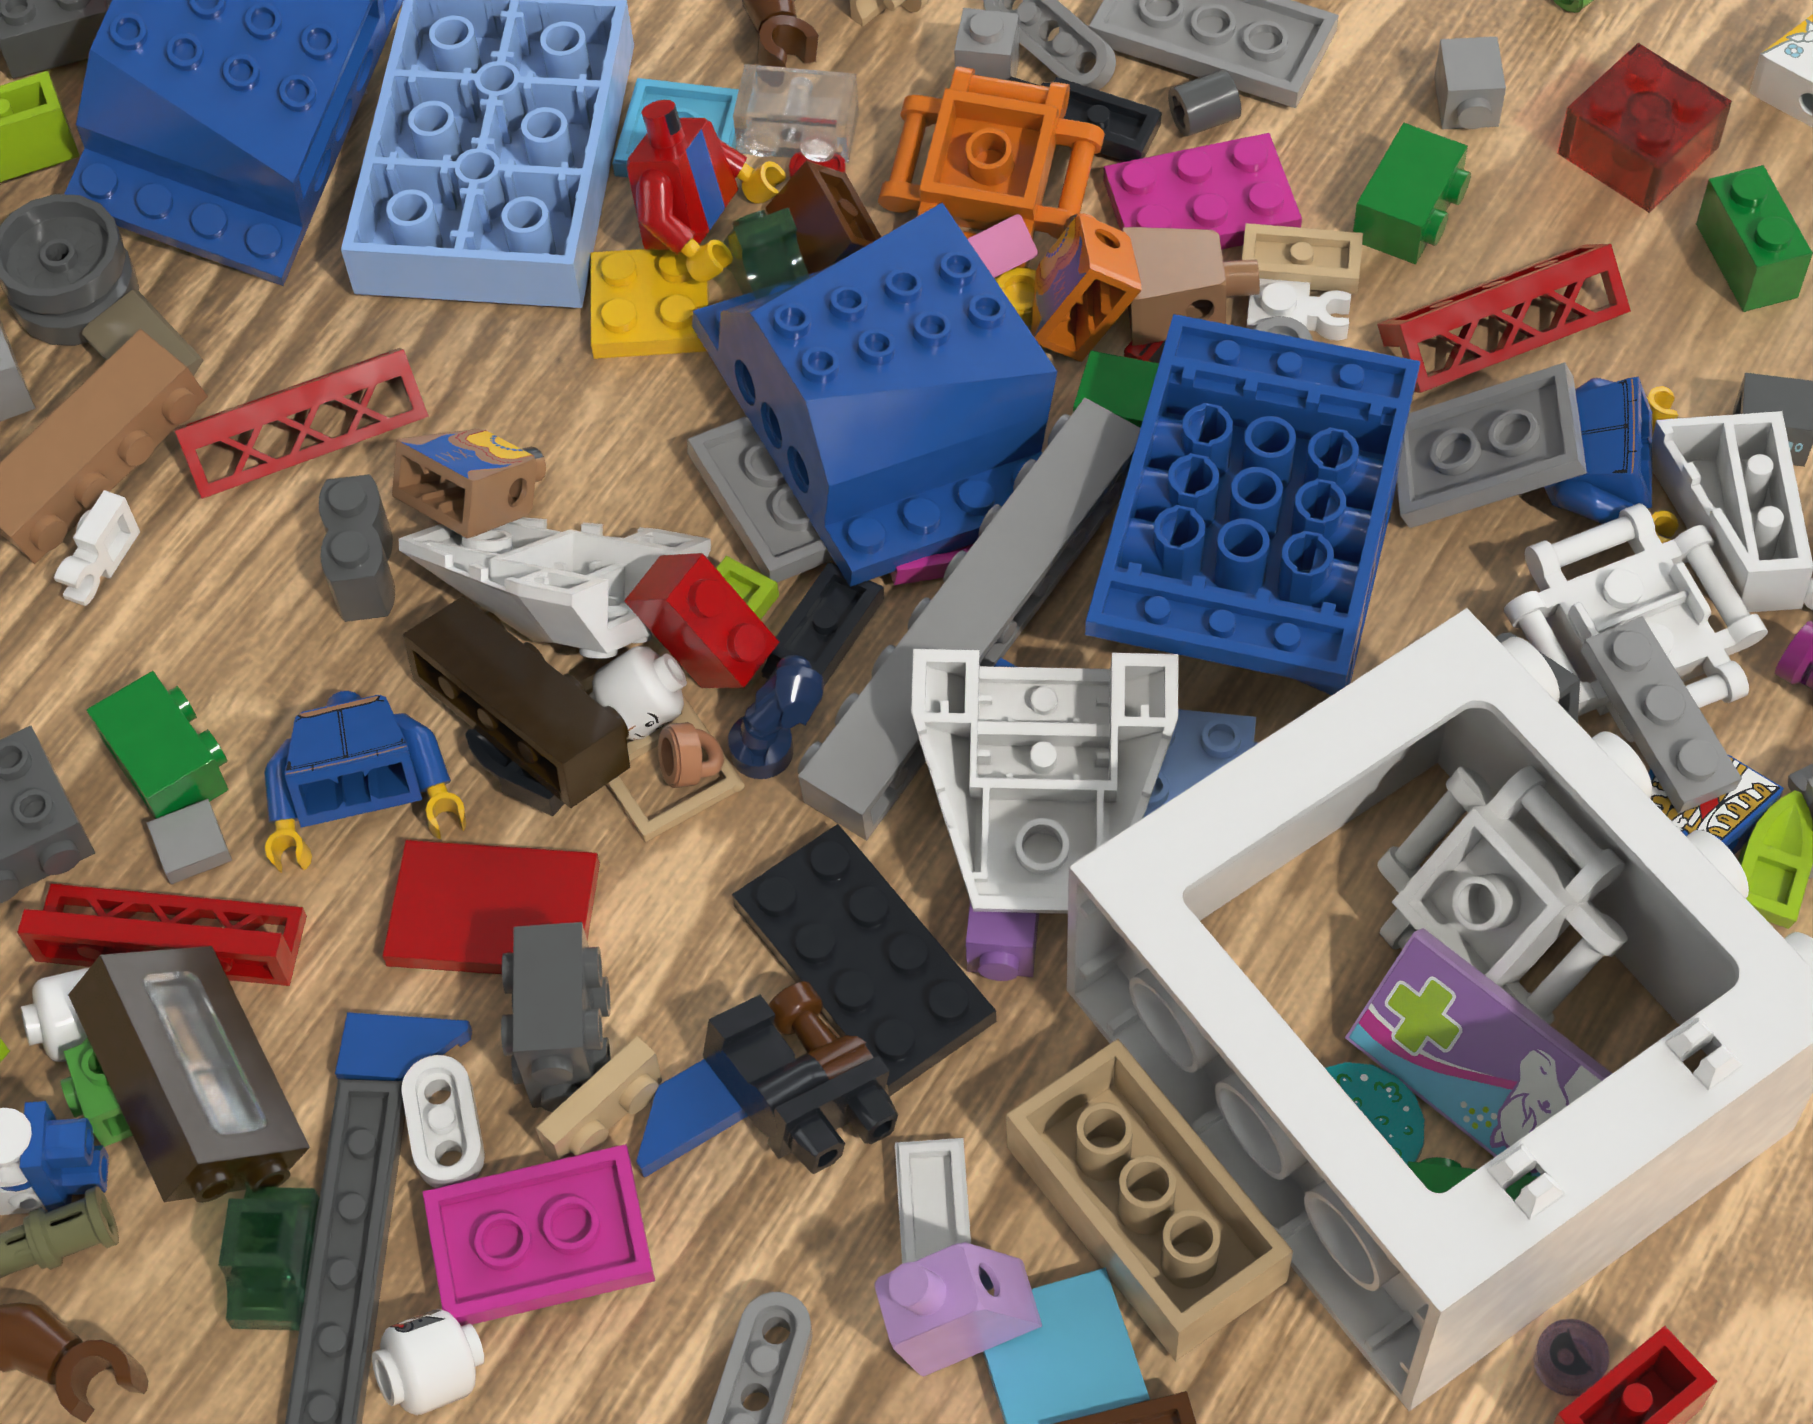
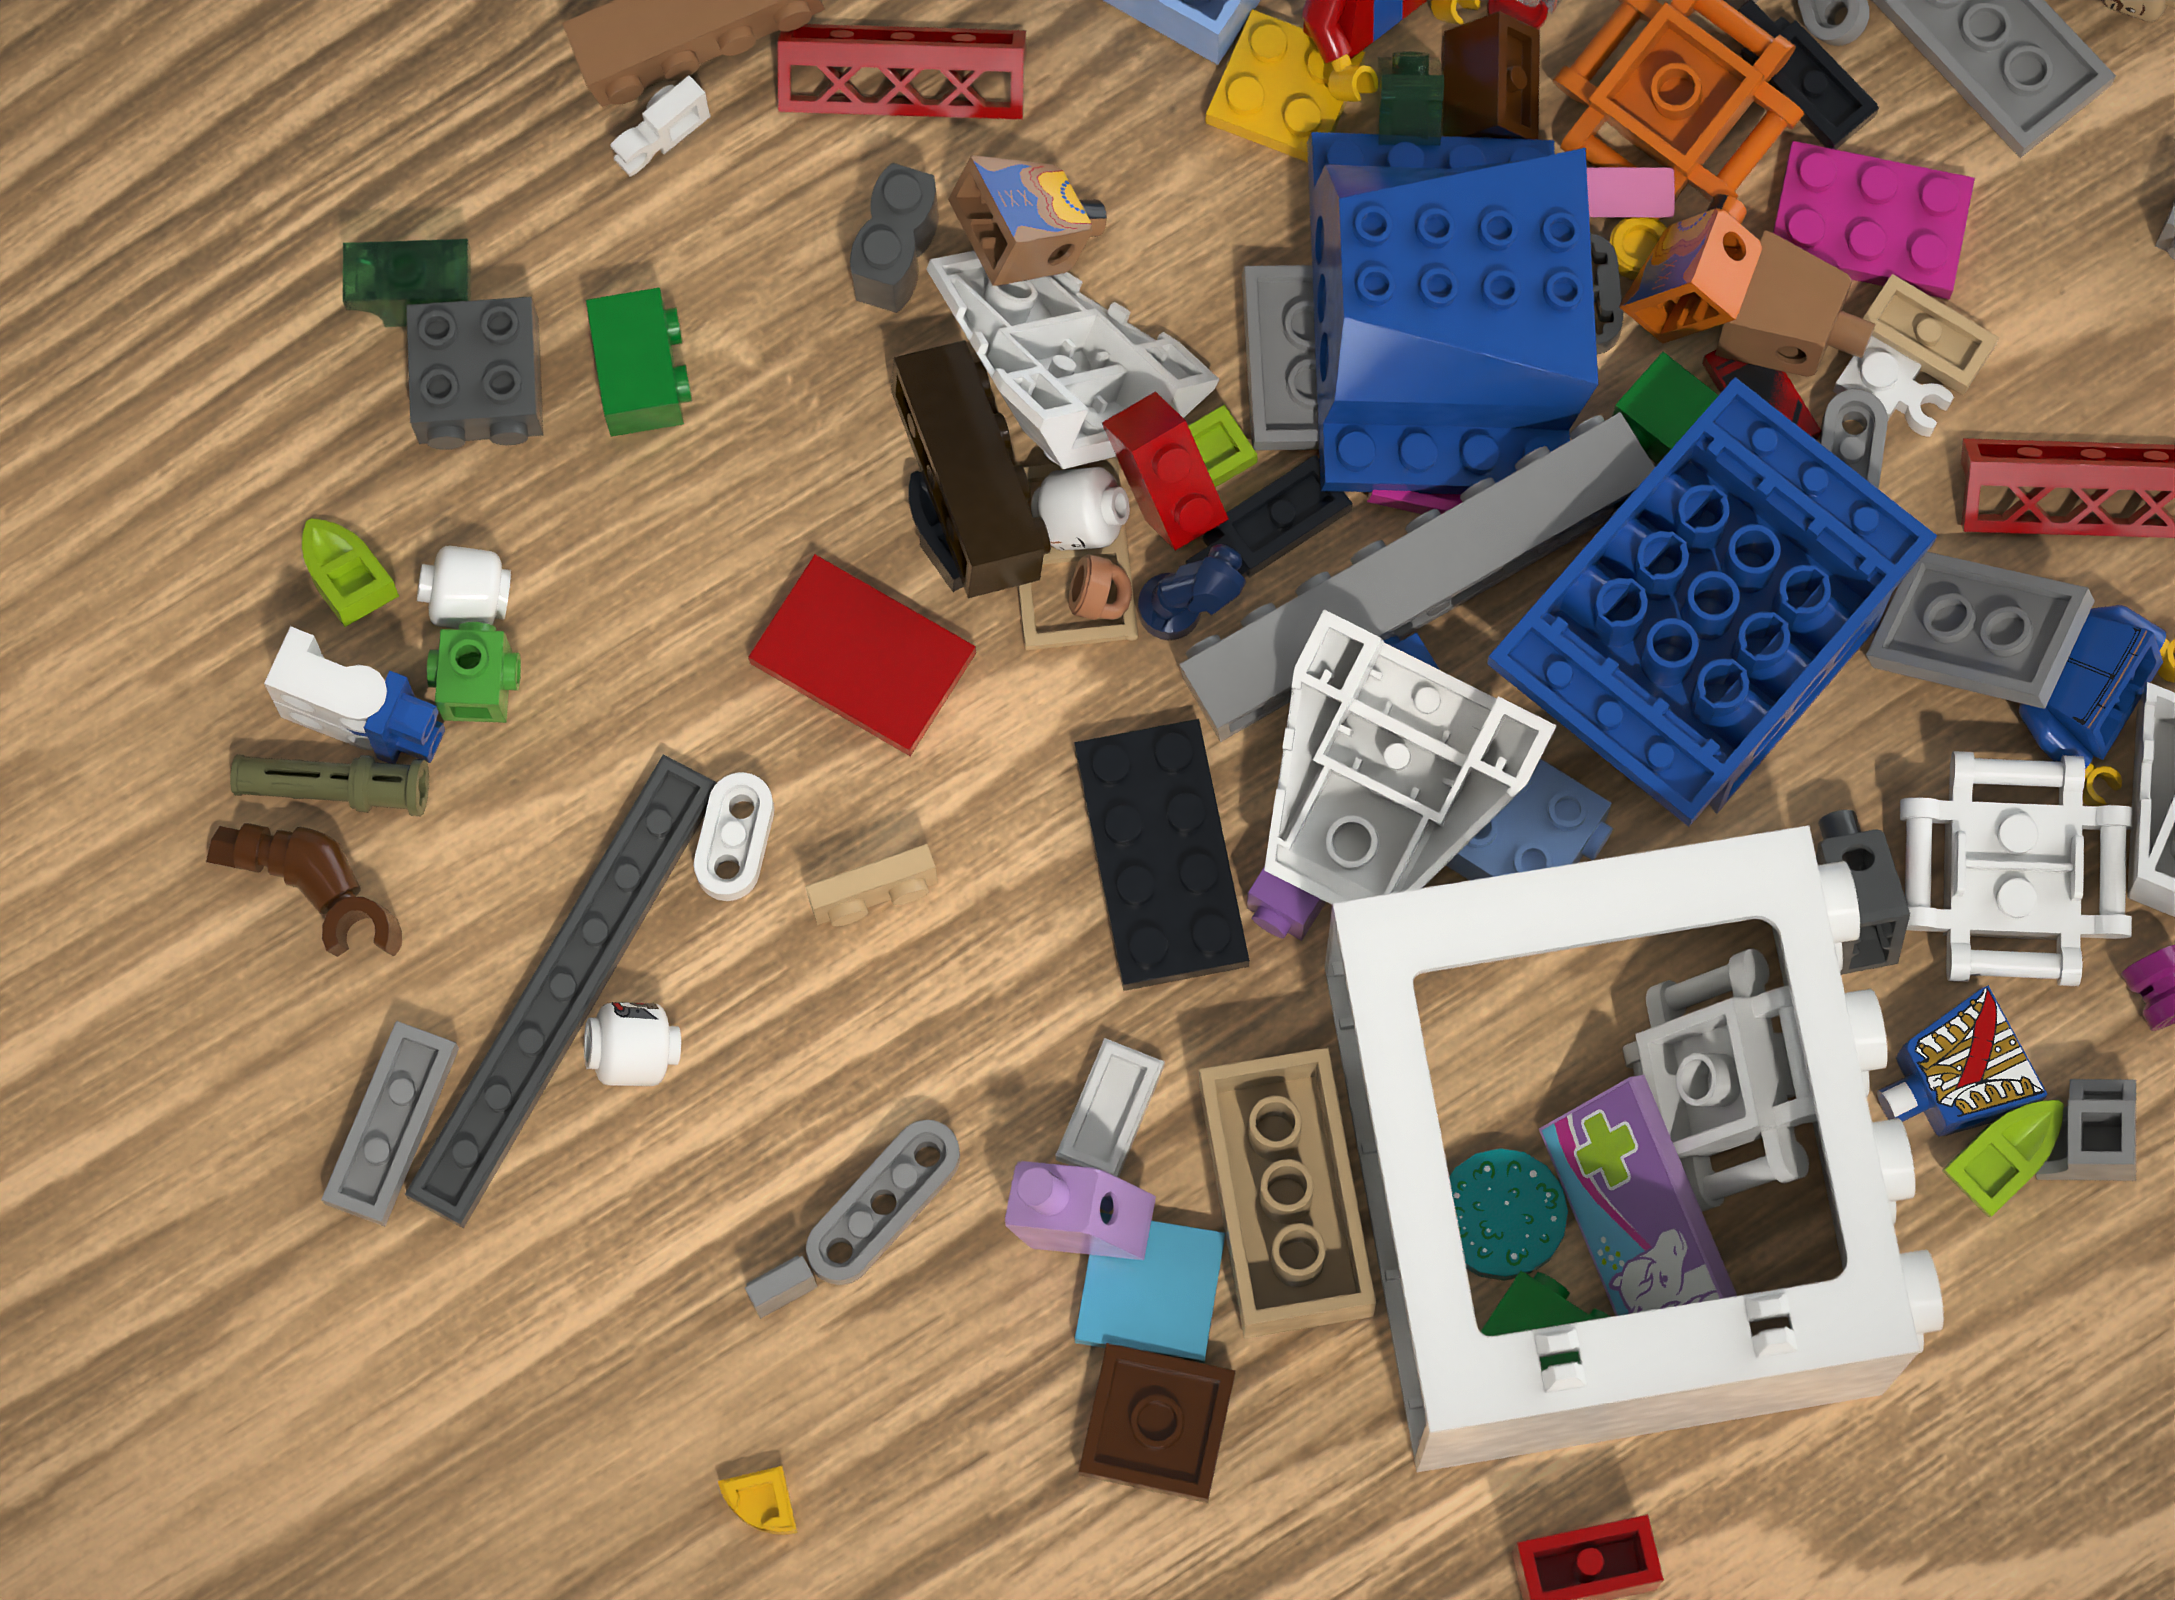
camera: 25 degrees right, 15 degrees up
(188, 1073) = (537, 699): dark brown piece -> none
(189, 841) = (628, 463): light grey tile -> none
(241, 950) = (567, 556): red fence -> none
(268, 1256) = (540, 888): clear green brick -> none
(352, 763) = (797, 461): blue torso -> none
(389, 1045) = (722, 745): blue tile -> none
(538, 1236) = (769, 977): dark pink plate -> none
(556, 1011) = (867, 791): dark grey brick -> none
(685, 1115) = (946, 926): blue tile -> none
(802, 1098) = (1047, 962): black hips -> none
(1204, 103) = (1929, 114): dark grey gear -> none
(1411, 192) = (2073, 314): green brick -> none
(1571, 1356) = (1573, 1495): tile -> none
(1660, 715) = (1973, 975): light grey plate -> none

